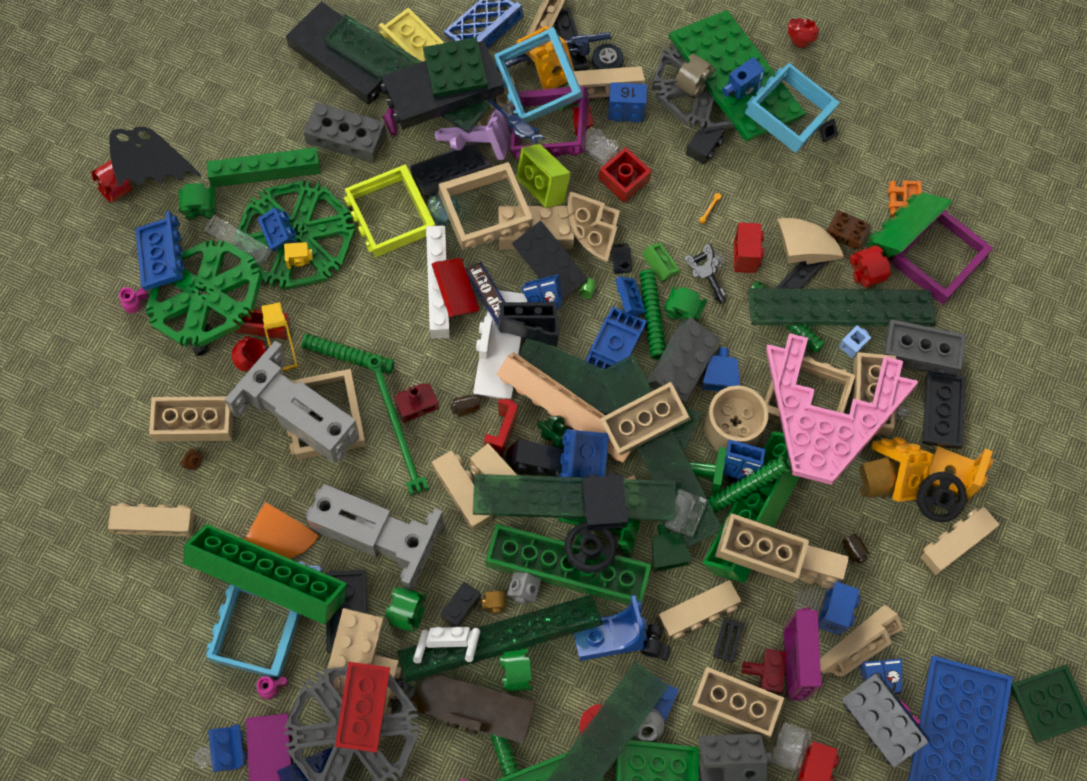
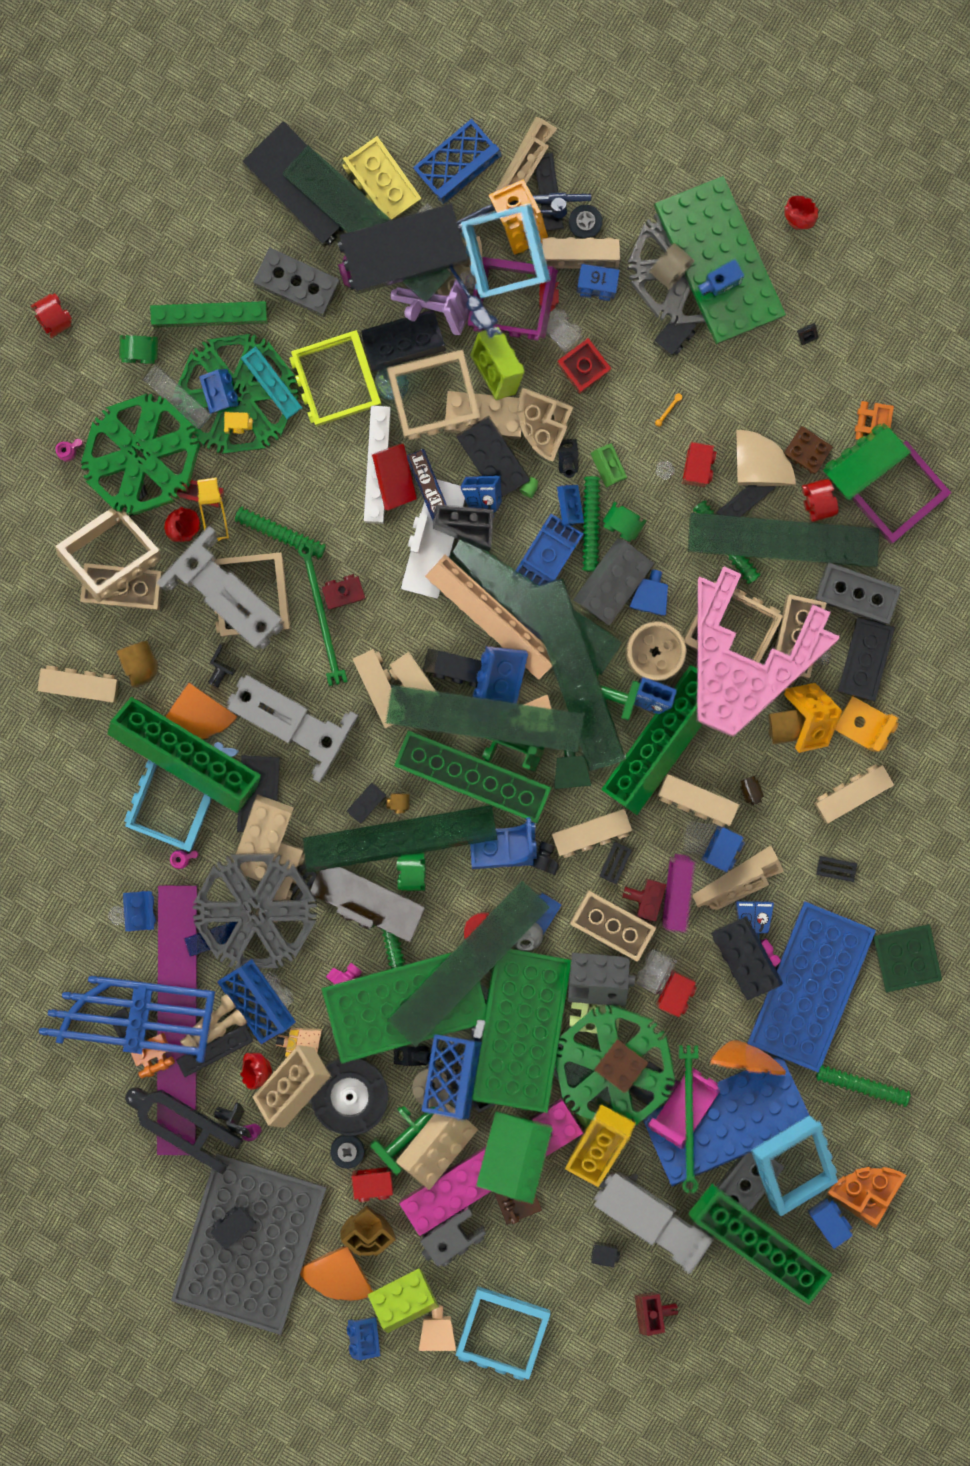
camera: 10 degrees right, 20 degrees up
(152, 160) = (90, 297): black piece -> none
(159, 252) = (97, 403): blue bracket -> none
(162, 366) = (93, 530): none -> tan window
(191, 460) = (119, 626): reddish brown plate -> none
(212, 490) = (138, 663): none -> pearl gold brick
(298, 490) = (220, 668): none -> black bracket
(328, 219) = (271, 383): none -> teal tile
(362, 707) = (266, 894): red plate -> none
(406, 609) = (314, 801): green brick -> none
(448, 638) = (351, 833): white plate -> none
(455, 67) = (418, 234): dark green plate -> none
(465, 405) = (391, 600): dark brown brick -> none
(509, 410) = (421, 649): red panel -> none
(524, 588) = (428, 793): light grey brick -> none
(553, 429) = (476, 639): dark green hips -> none
(578, 560) = (491, 749): black wheel -> none
(604, 502) = (512, 729): black brick -> none
(645, 418) = (563, 648): tan brick -> none
(687, 512) = (592, 743): clear brick -> none
(707, 270) = (654, 482): piece -> none
(749, 484) = (656, 721): green piece -> none
(762, 548) = (655, 791): tan brick -> none
(805, 87) = (793, 289): medium azure window -> none
(849, 345) = (788, 584): light blue brick -> none
(953, 508) = (848, 755): black wheel -> none
(974, 620) = (852, 872): none -> black tile

